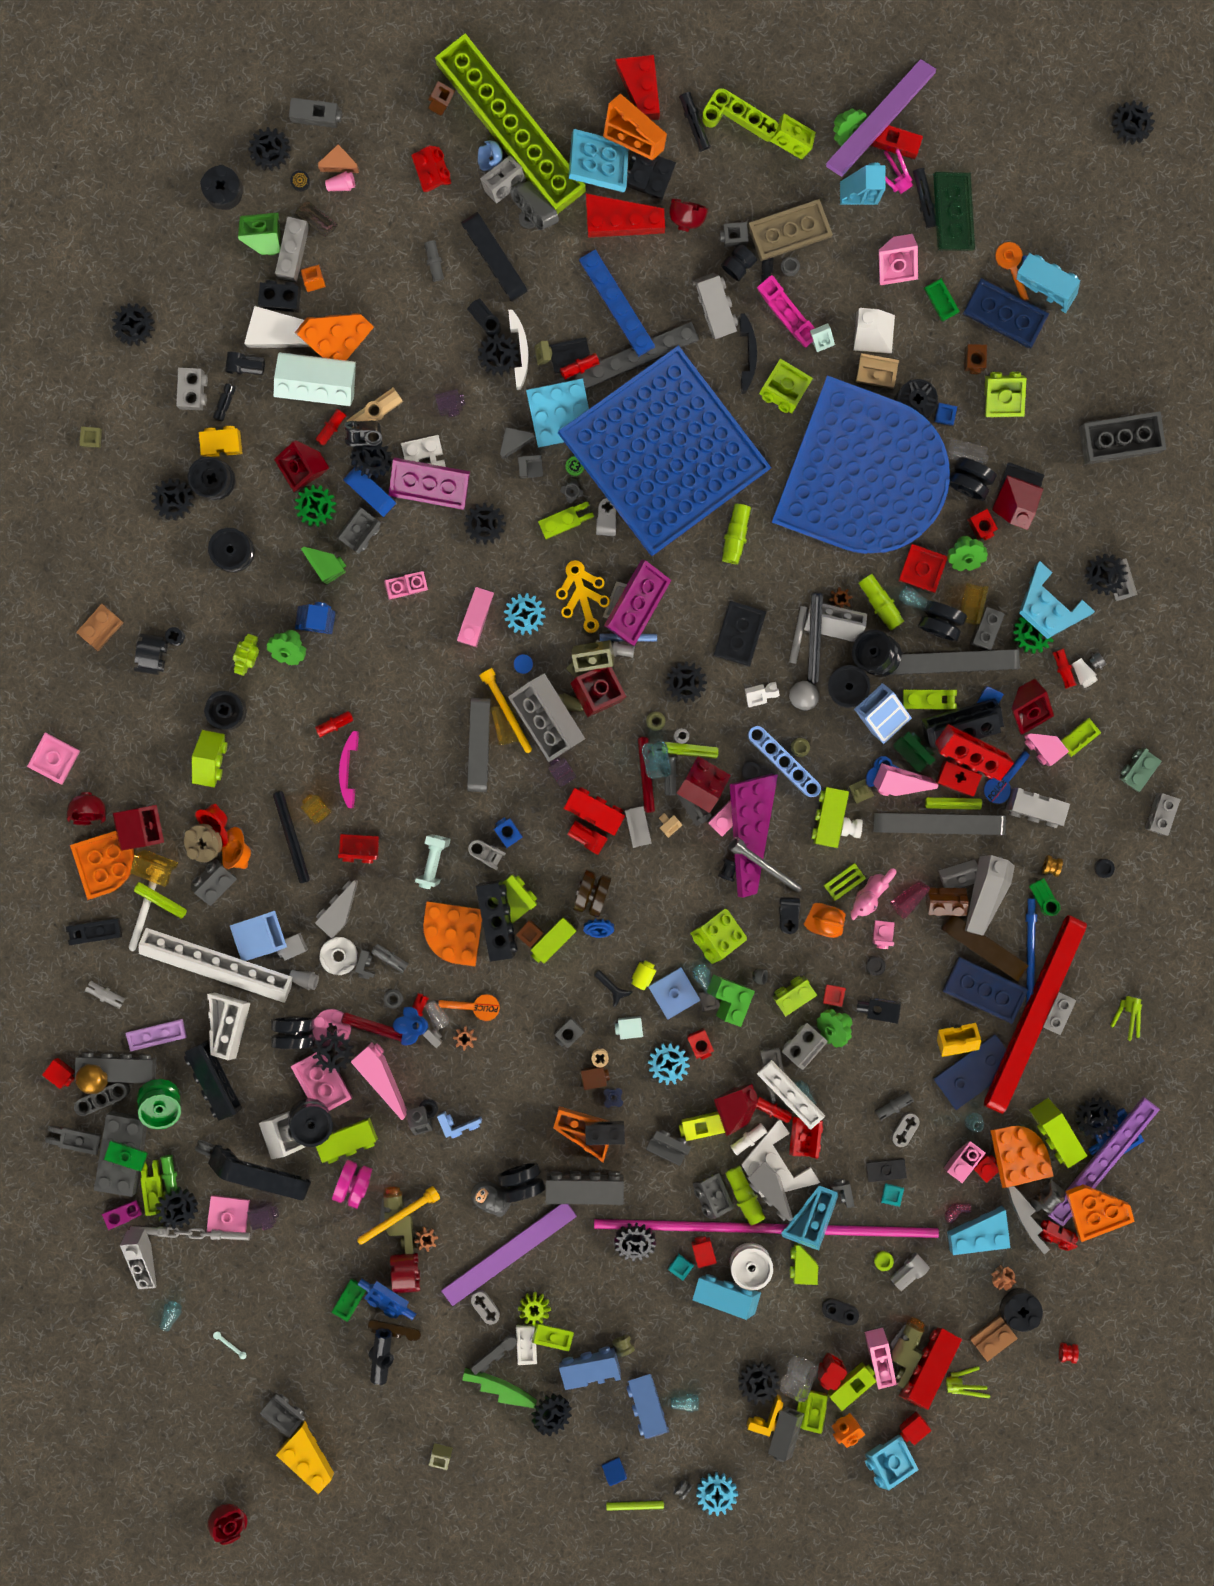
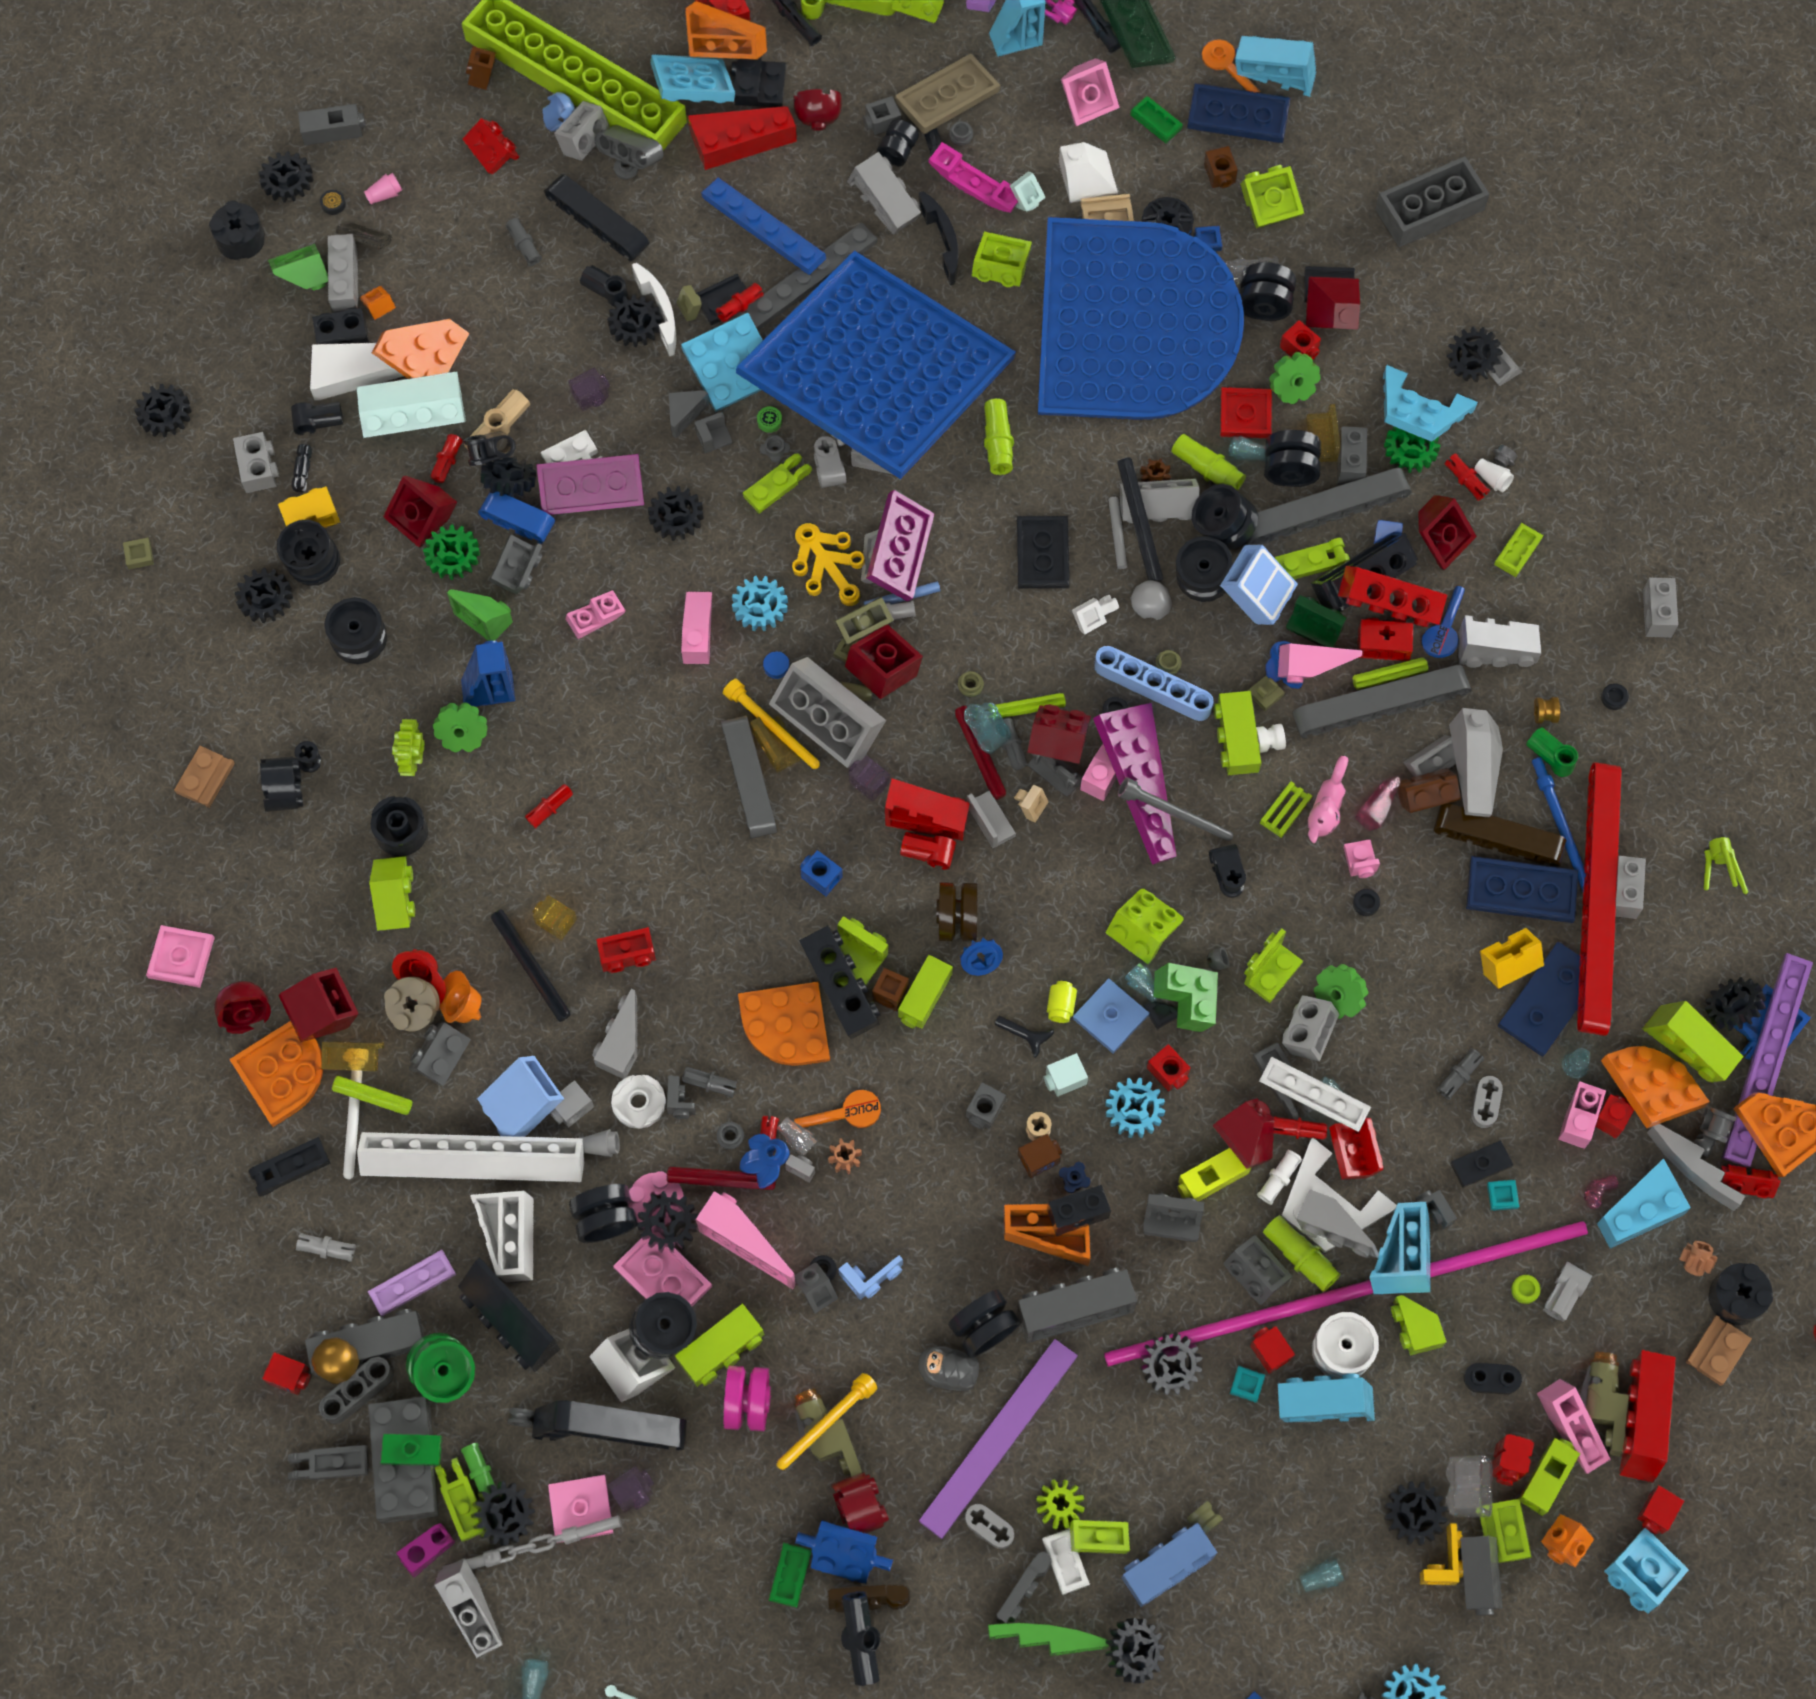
camera: 20 degrees left, 20 degrees down
(338, 161) = (373, 166): nougat slope -> none
(351, 744) = (578, 827): dark pink slope -> none
(423, 1243) = (866, 1453): nougat gear -> none
(436, 845) = (732, 908): light aqua fence -> none
(487, 854) = (801, 907): light grey piece -> none
(647, 1407) = (1271, 1596): medium blue wedge -> none
(679, 675) = (999, 634): black gear -> none
(684, 731) = (1010, 684): light grey pin -> none
(728, 870) = (1128, 836): black bush -> none
(825, 920) = (1279, 866): orange piece -> none
(834, 995) = (1325, 953): red plate -> none
(889, 1013) = (1405, 949): black torso -> none
(956, 1386) = (1692, 1430): lime plant -> none
(1047, 747) = (1481, 570): bright pink slope -> none
(1140, 769) = (1611, 566): sand green bracket -> none

